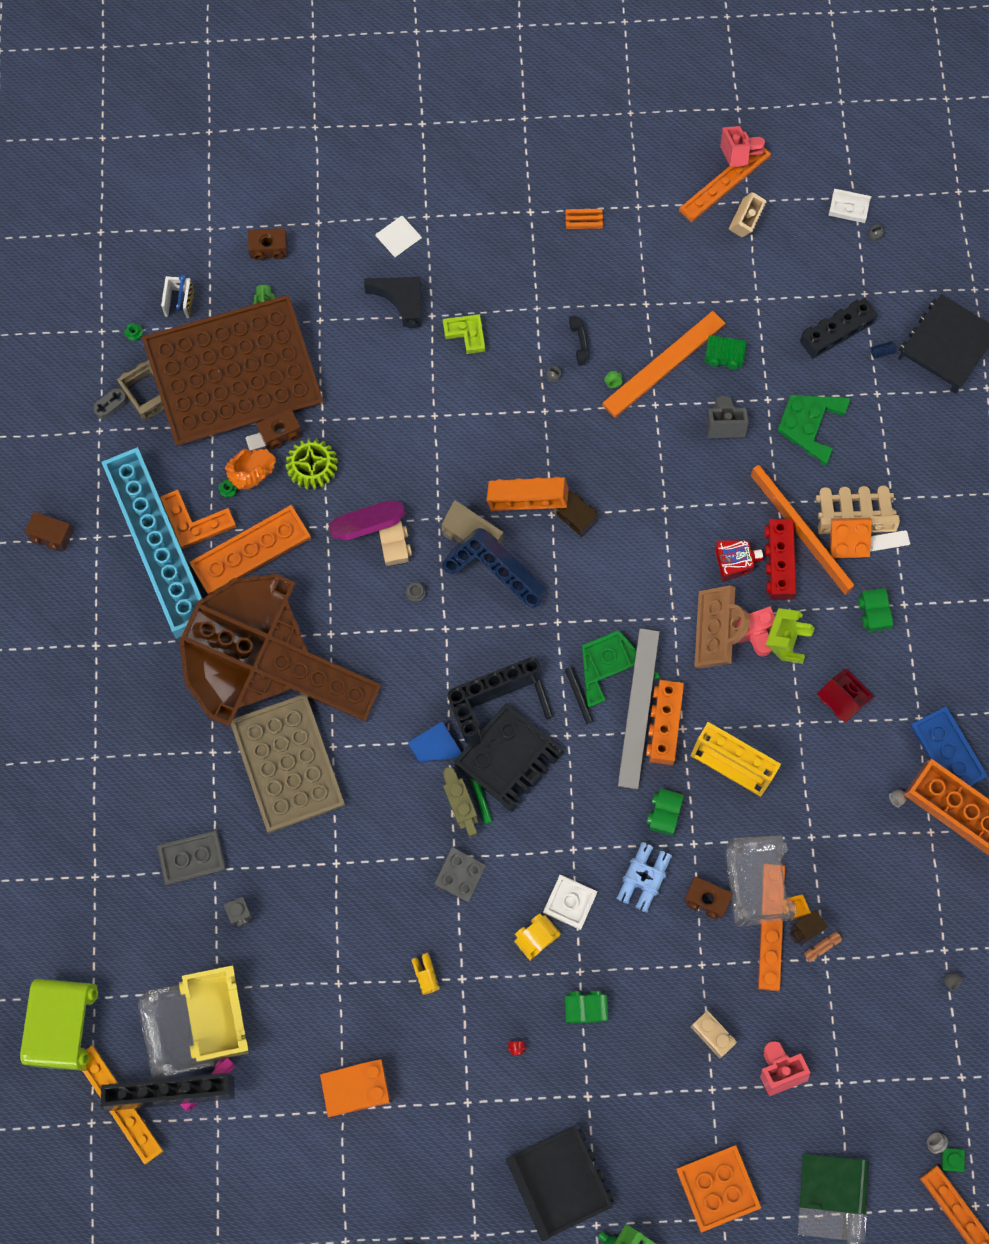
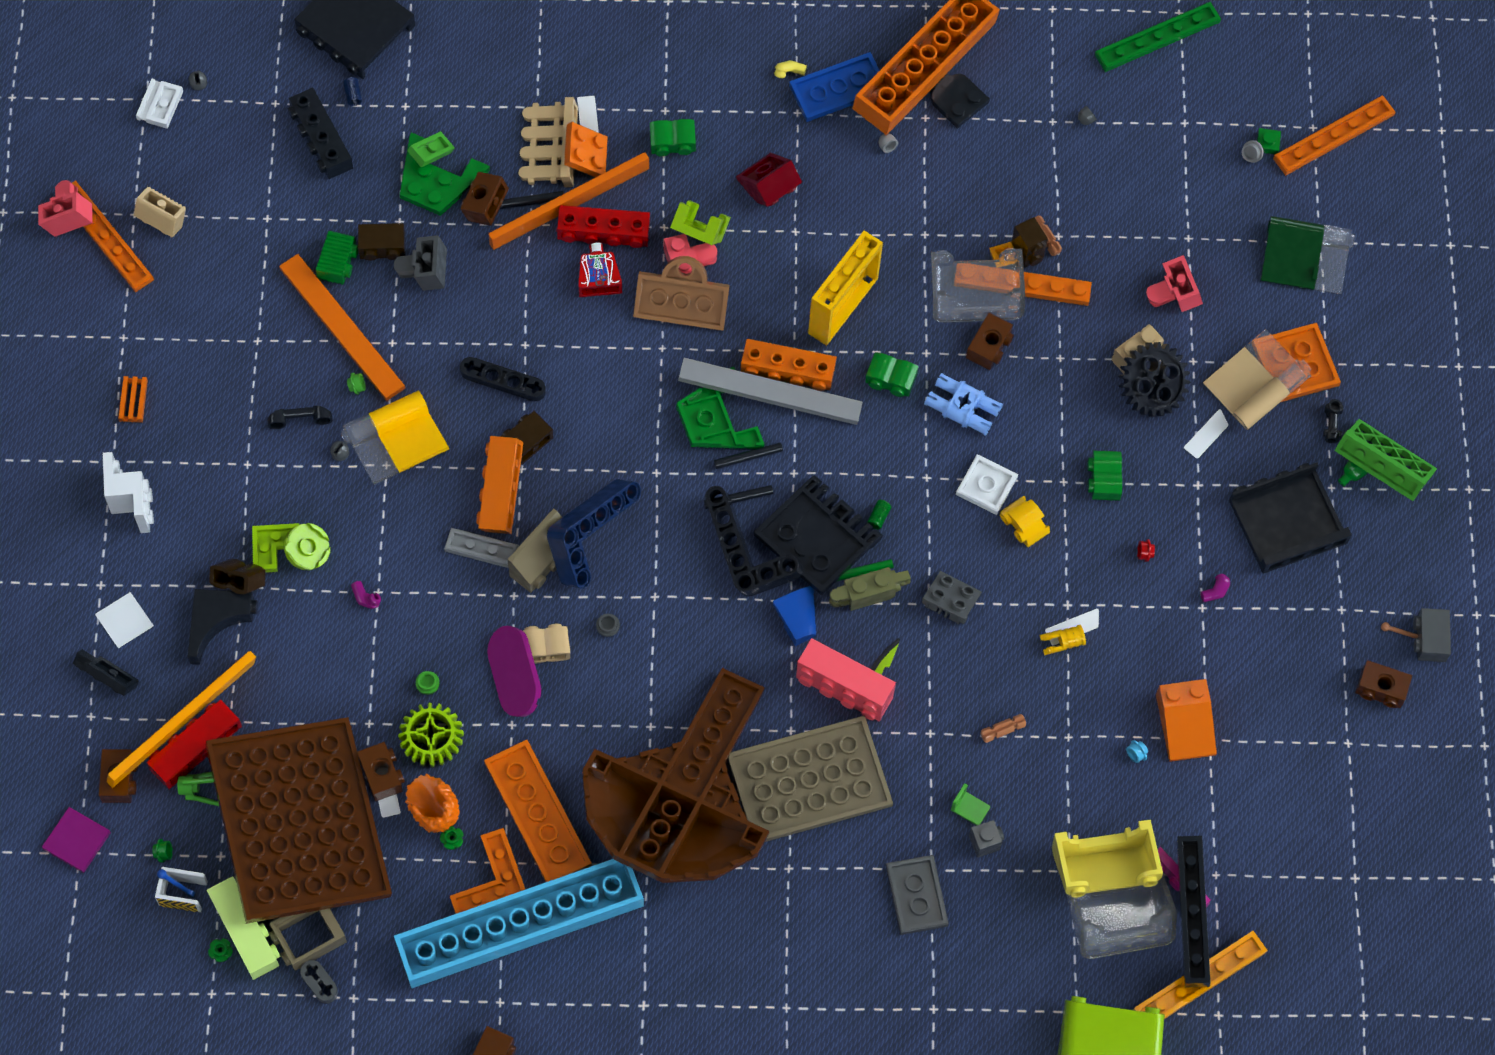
camera: 90 degrees left, 5 degrees down
(132, 350) = (249, 937): none -> yellowish green brick
(210, 283) = (162, 850): none -> green plate
(218, 224) = (76, 840): none -> magenta tile
(268, 898) = (969, 807): none -> bright green bracket
(303, 298) = (189, 747): none -> red brick
(311, 279) = (180, 719): none -> light orange tile
(325, 1044) = (1137, 751): none -> medium azure plate
(341, 925) = (1003, 728): none -> nougat axle
(350, 227) = (106, 672): none -> black hinge
(357, 458) = (427, 682): none -> bright green plate
(372, 784) = (845, 680): none -> coral brick
(399, 820) = (885, 658): none -> sticker
(426, 404) = (365, 599): none -> magenta arm
(433, 306) = (237, 576): none -> dark brown brick
(445, 993) = (1088, 621): none -> white sticker
(465, 356) = (307, 546): none -> lime tile
(478, 486) = (479, 547): none -> light grey tile
(483, 1116) = (1218, 591): none -> magenta arm
(498, 213) = (127, 492): none -> white bracket
(535, 809) = (880, 510): none -> green piece
(568, 413) = (395, 437): none -> yellow door
(629, 491) = (501, 382): none -> black beam
(638, 1104) = (1207, 434): none -> white sticker
(673, 1225) = (1332, 411): none -> black bar
(680, 1067) = (1171, 386): none -> black gear
(694, 1149) = (1257, 379): none -> tan door
(744, 385) = (381, 241): none -> dark brown brick
(793, 460) = (484, 198): none -> reddish brown brick
(800, 498) = (528, 200): none -> black bar
(834, 413) = (430, 149): none -> bright green plate
(954, 860) = (958, 98): none -> black plate
(963, 706) = (789, 66): none -> light yellow arm

